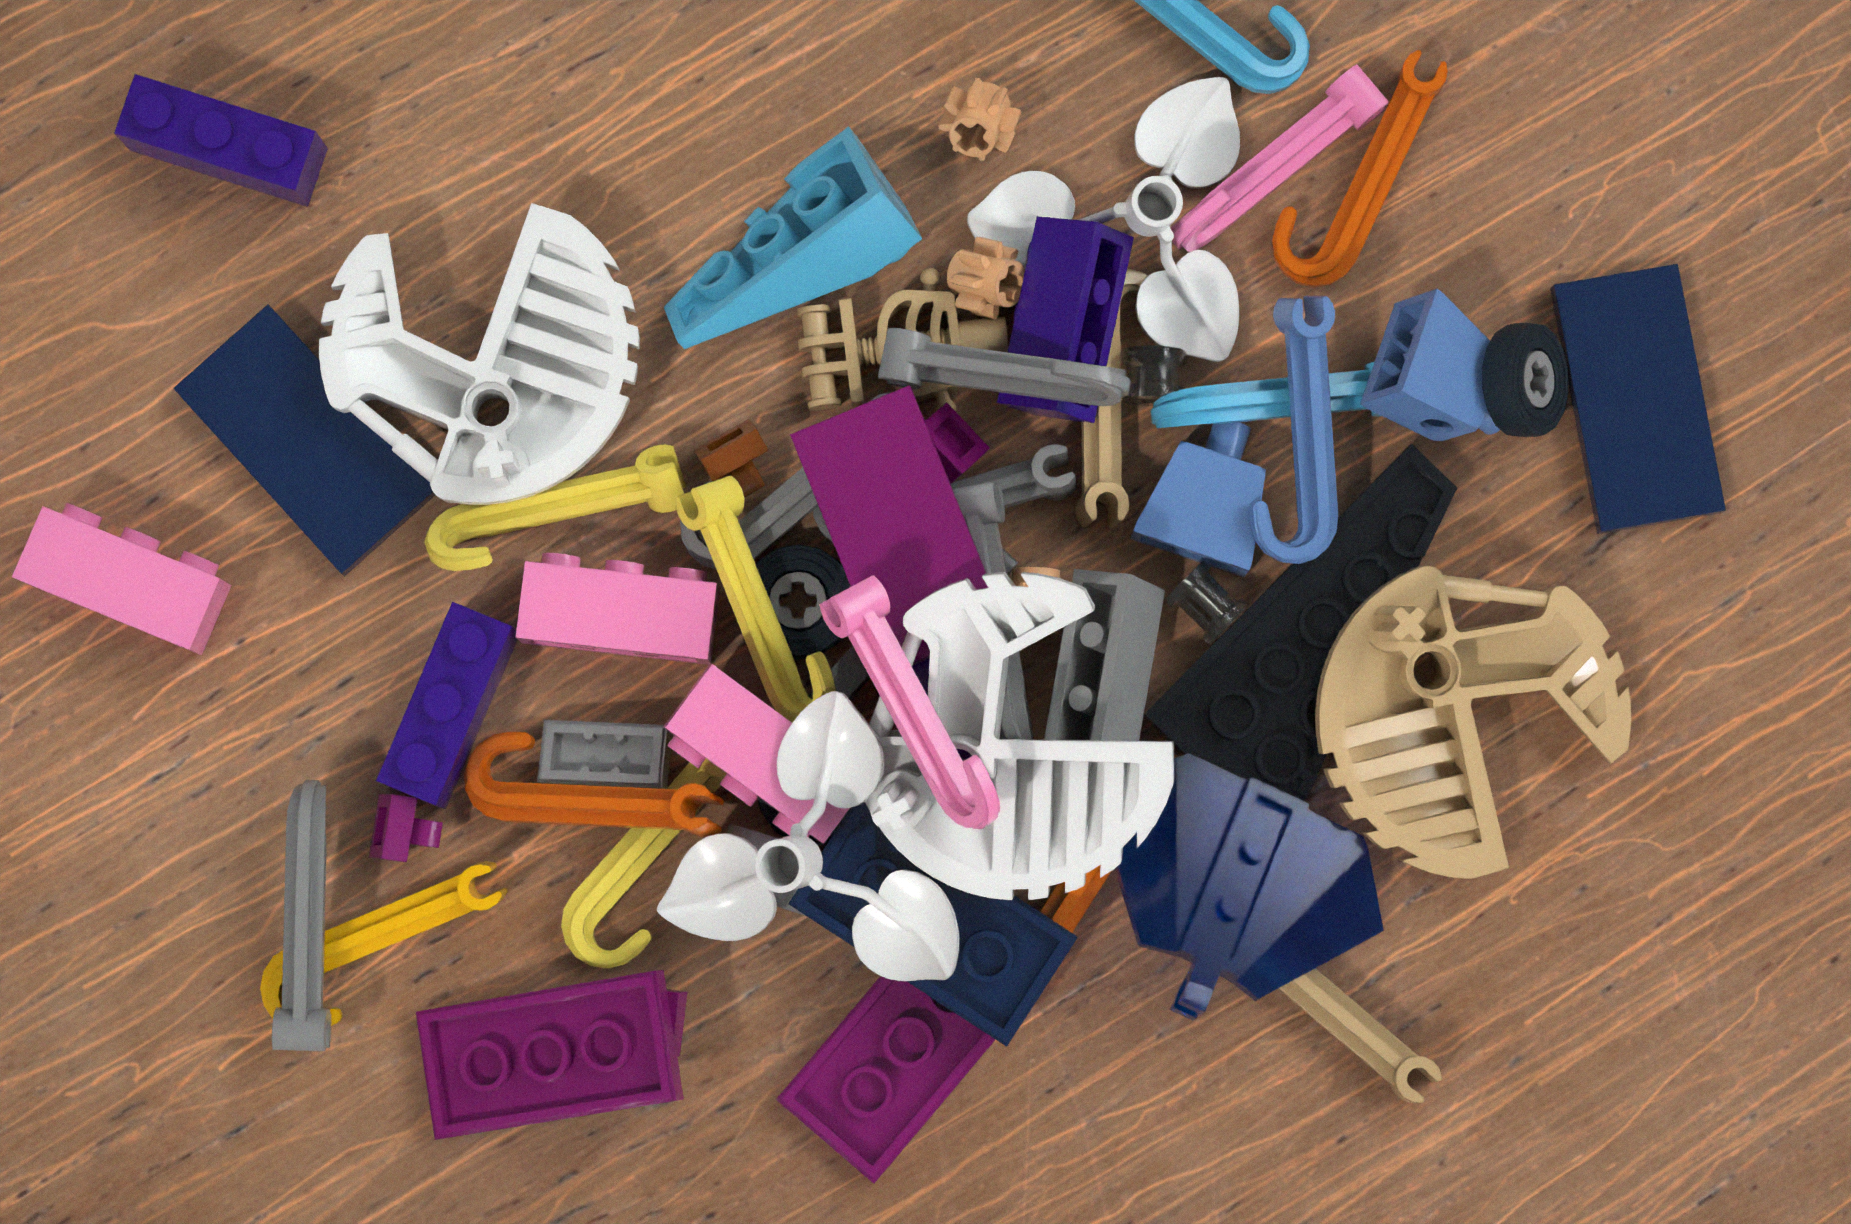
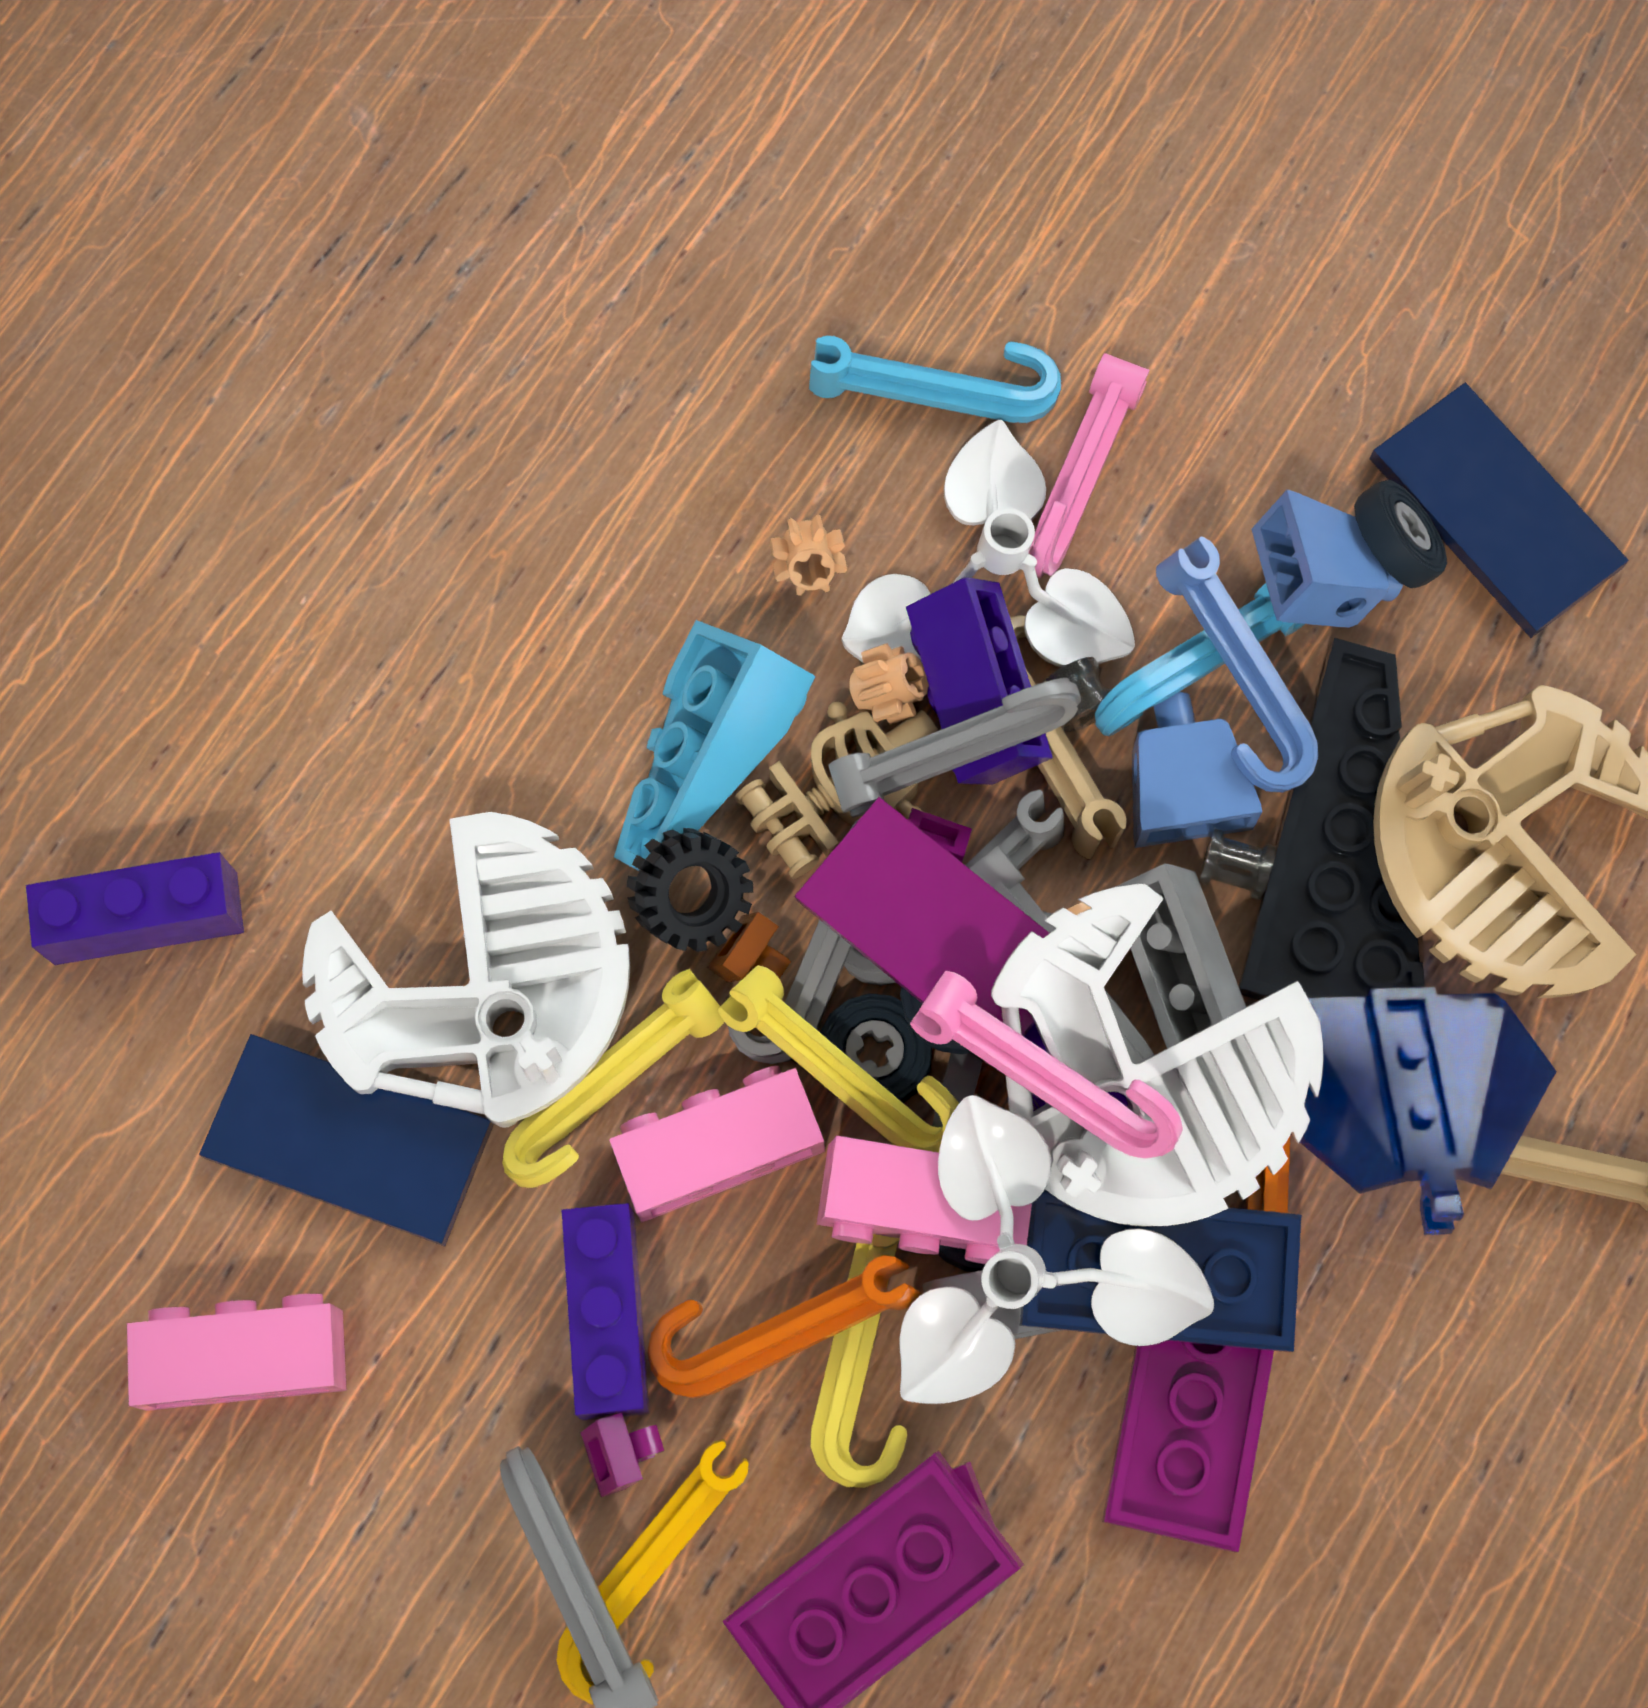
camera: 25 degrees left, 10 degrees down
(604, 754) = (773, 1280): light grey plate -> none
(715, 409) = (718, 910): none -> black tyre
(1367, 188) = (1170, 448): orange piece -> none

